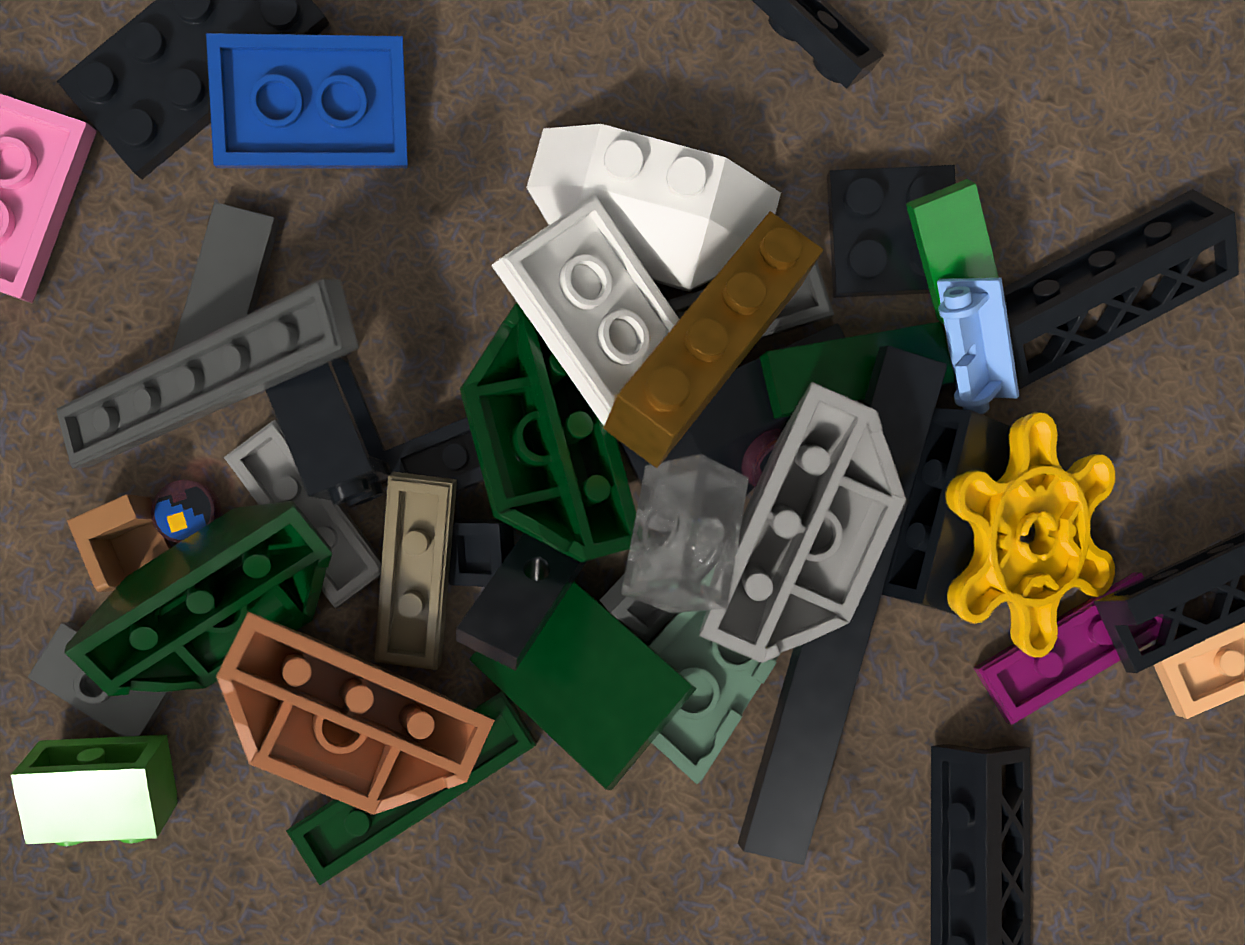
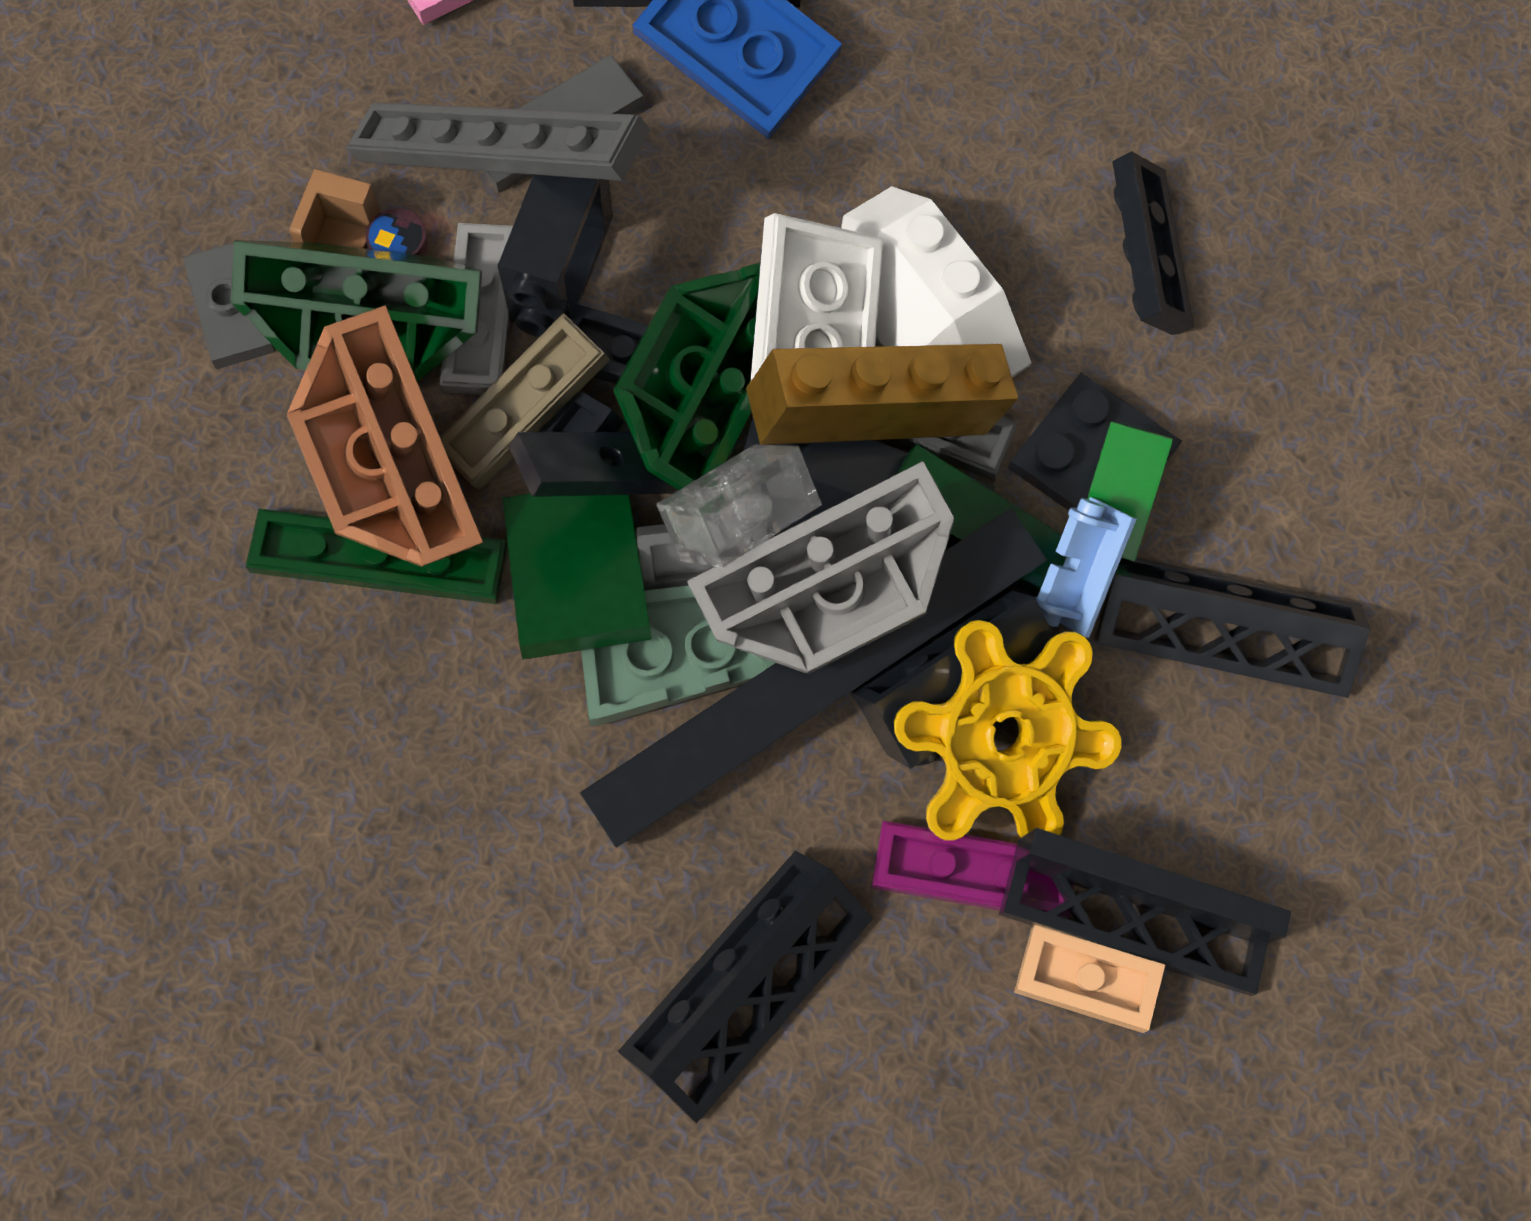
camera: 30 degrees right, 15 degrees down
(95, 790) = (157, 365): brick -> none

